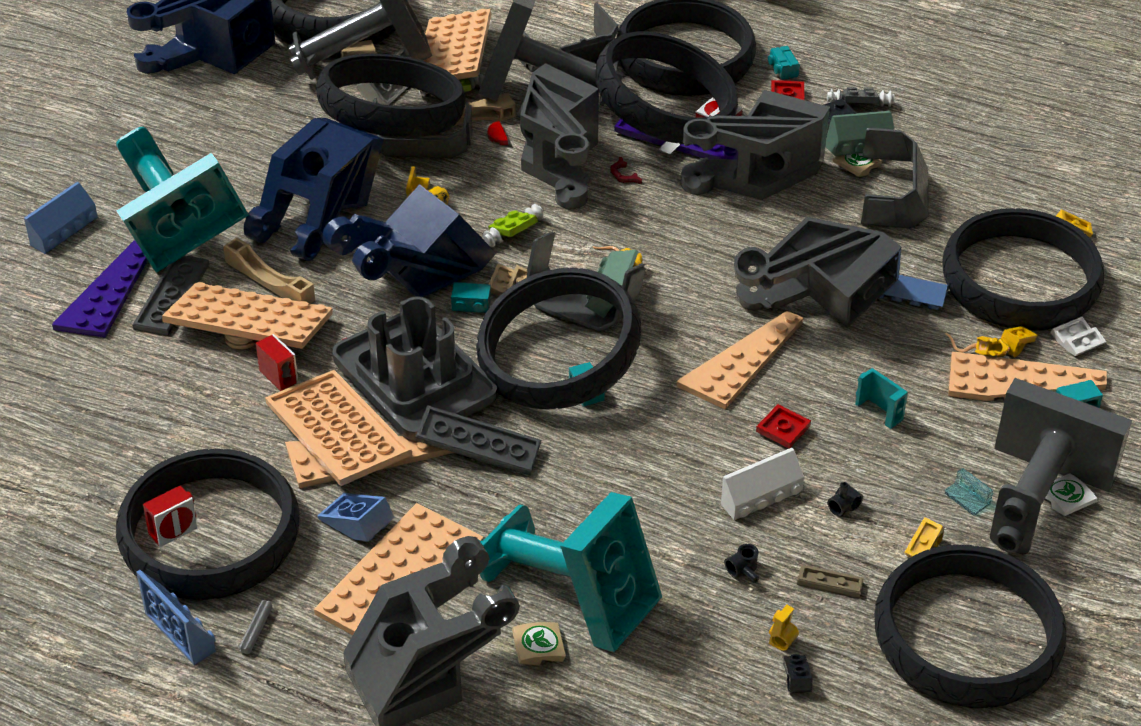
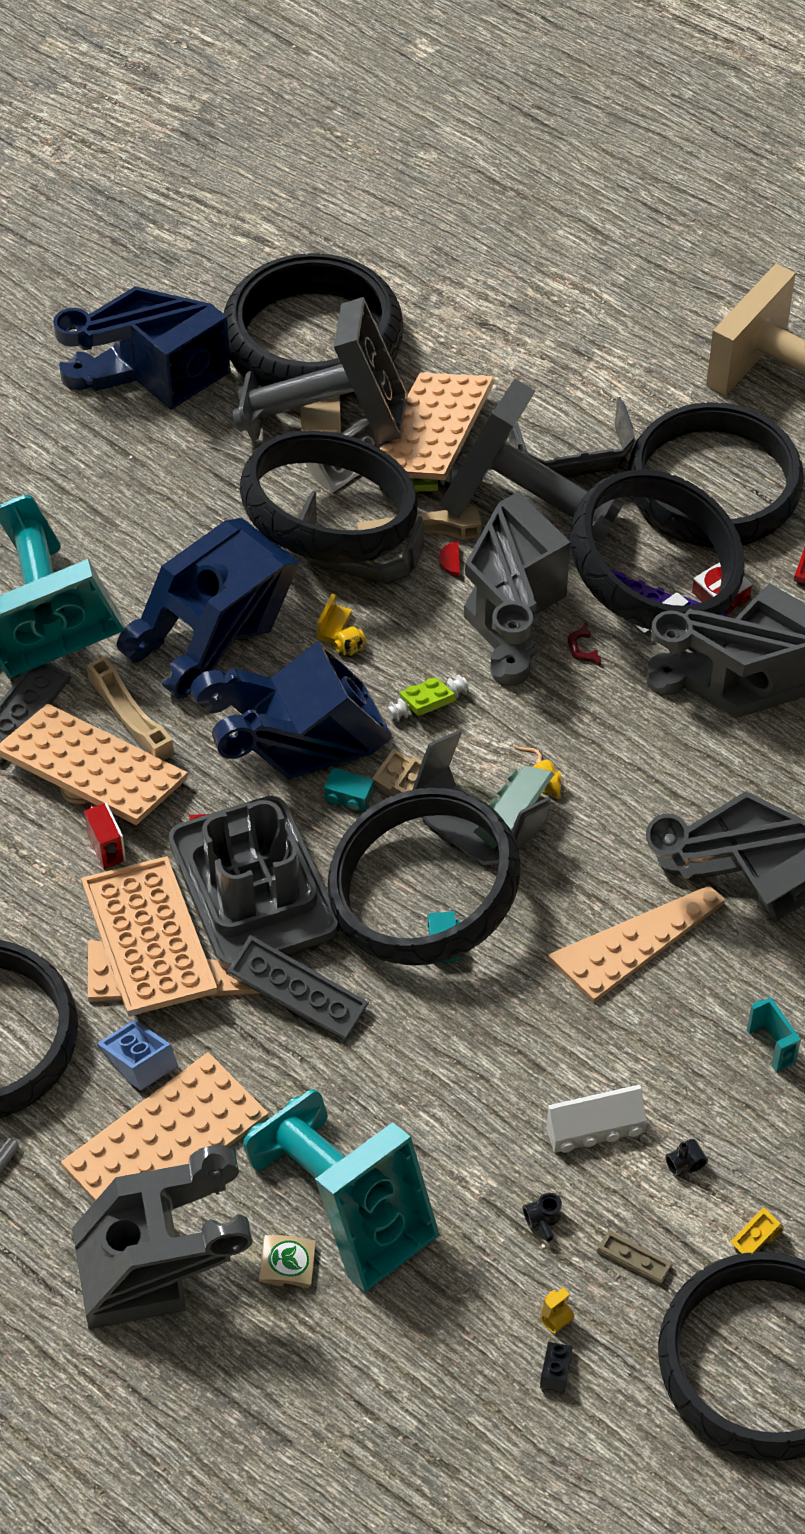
camera: 15 degrees right, 10 degrees up
(783, 426) = (650, 1043): red plate -> none

